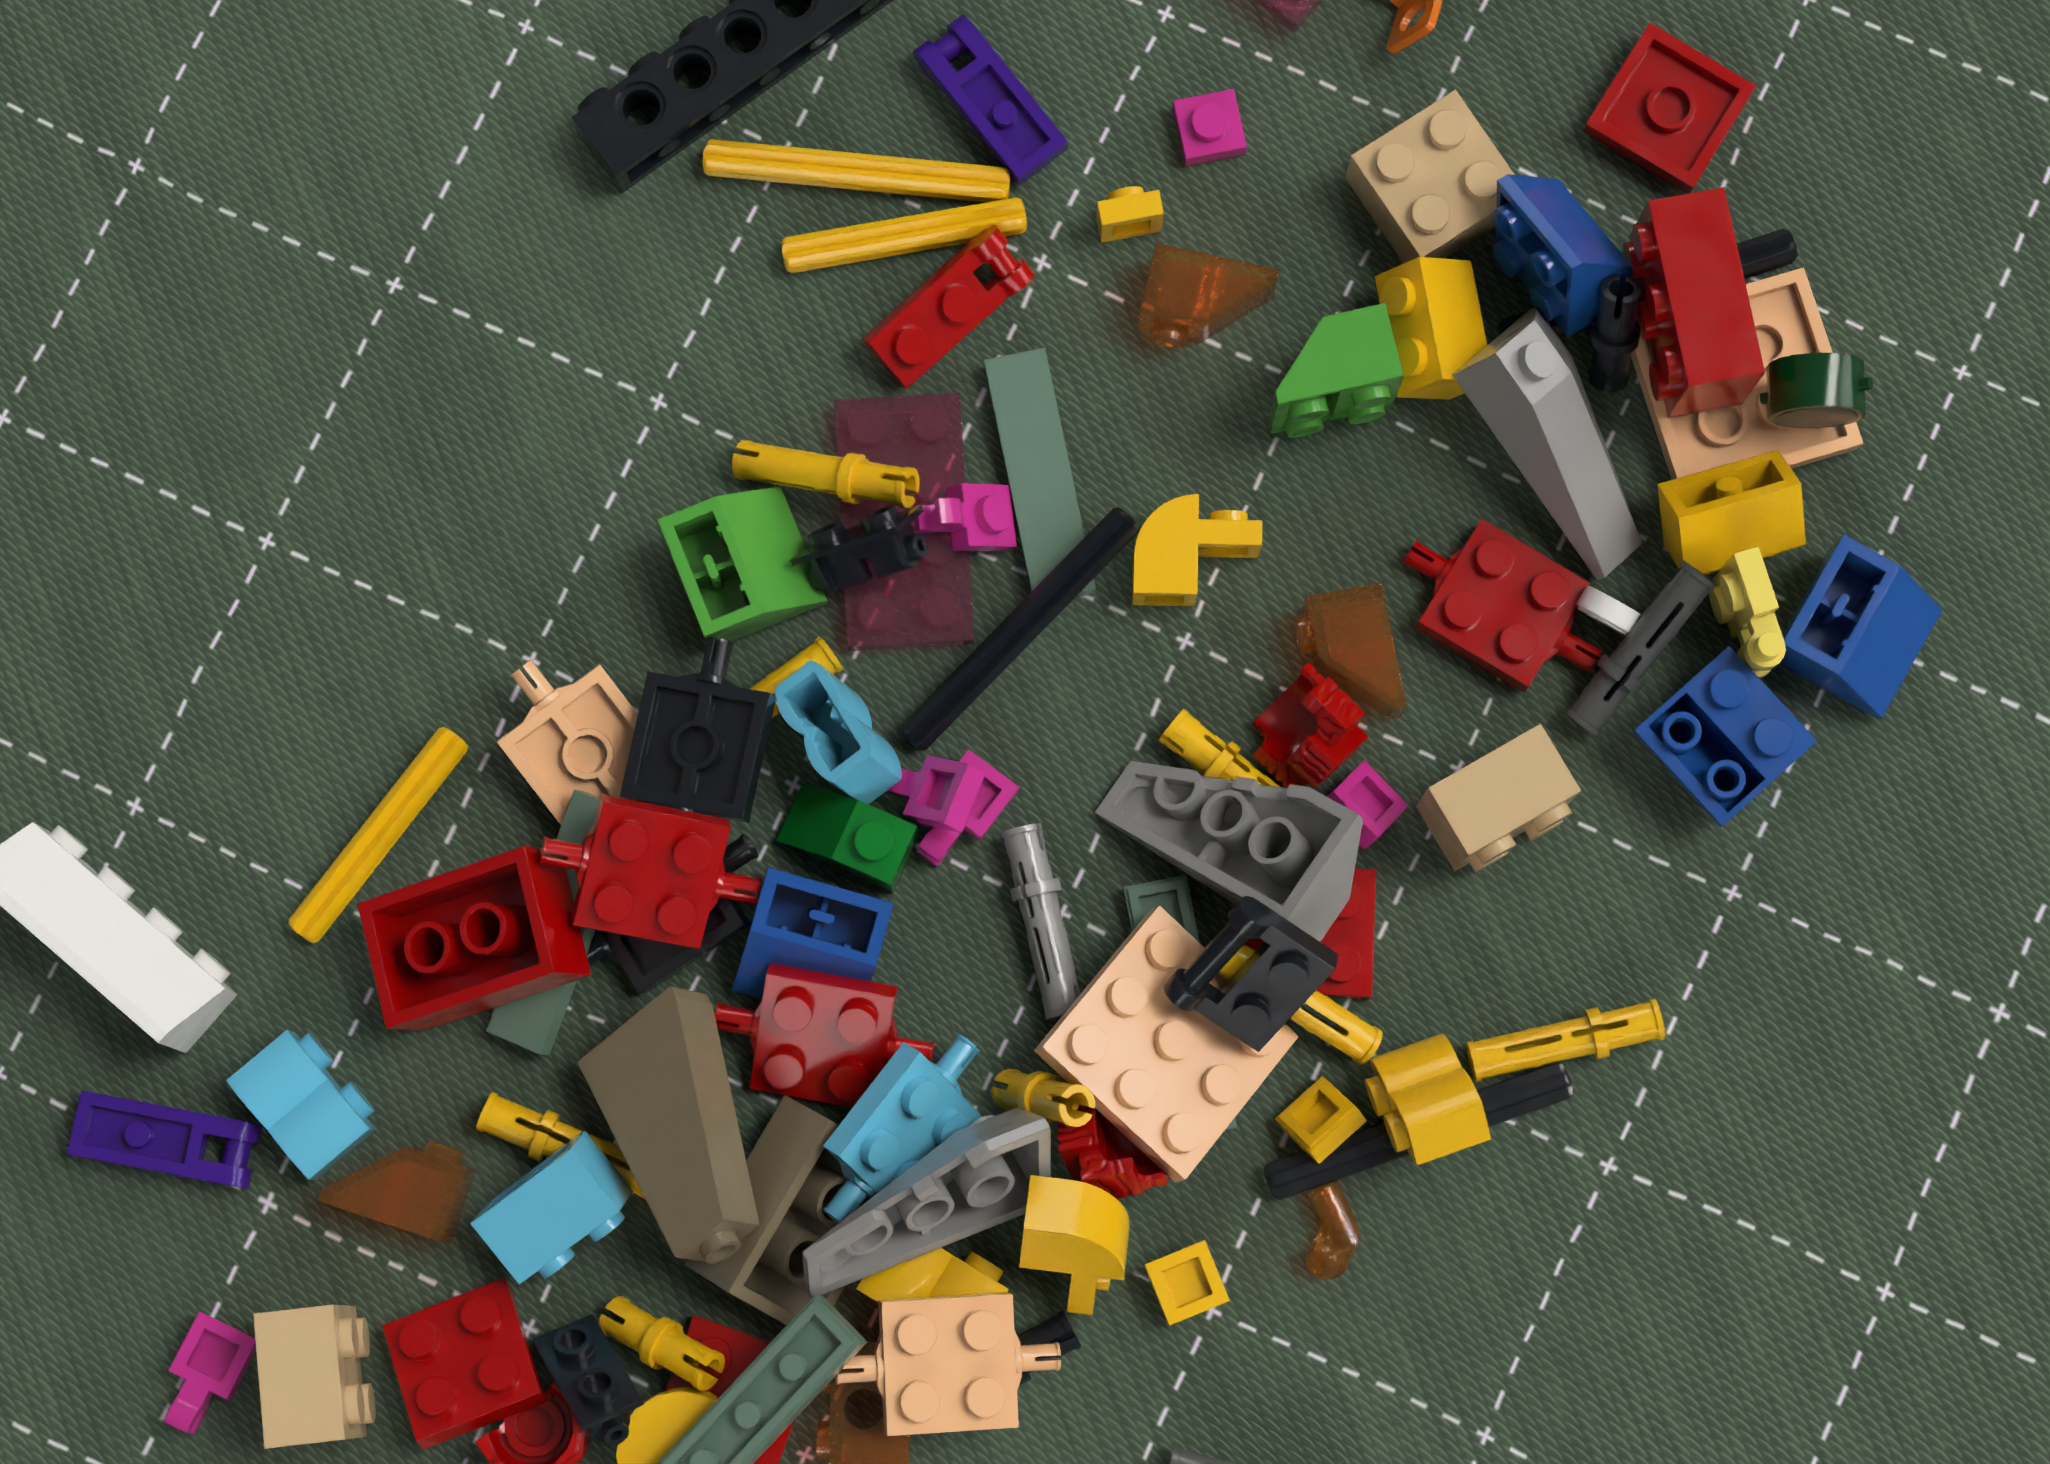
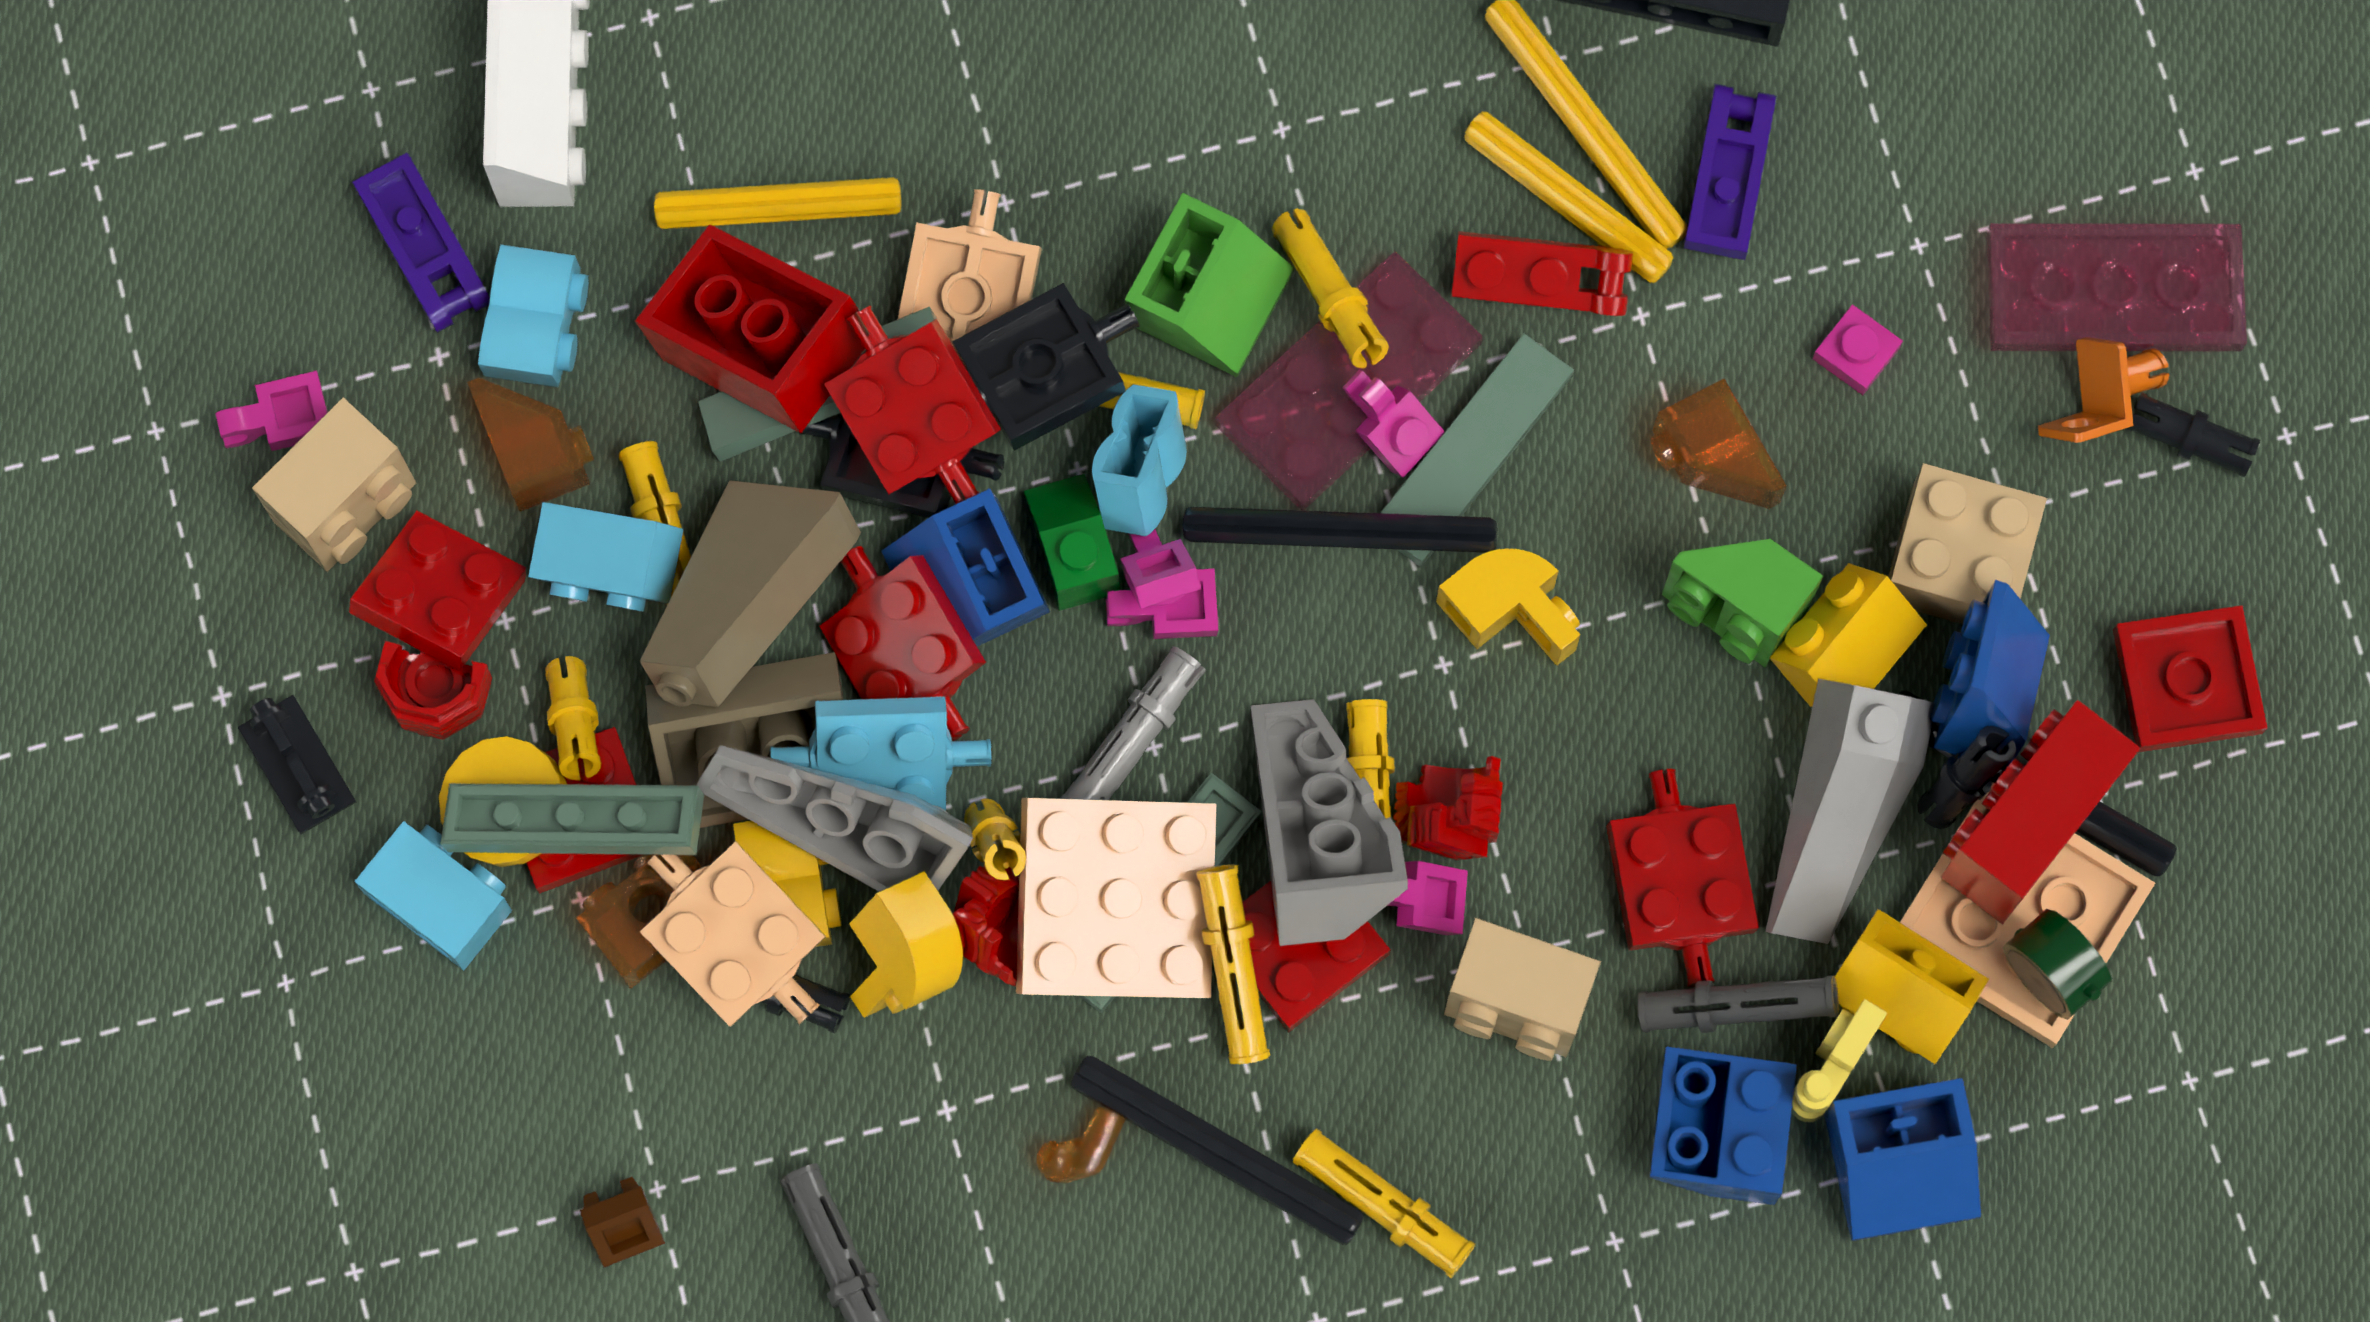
camera: 50 degrees right, 5 degrees down
(590, 1378) = (501, 685): black hinge -> none
(883, 536) = (1315, 365): black hinge -> none
(1129, 214) = (1732, 344): yellow plate -> none
(1186, 1282) = (949, 1069): yellow plate -> none
(1266, 987) = (1222, 927): black plate -> none
(1320, 1119) = (1160, 1066): yellow tile -> none
(1354, 645) = (1549, 786): clear orange slope -> none
(1427, 1100) = (1240, 1127): yellow brick -> none
(1607, 610) = (1746, 954): white tile -> none

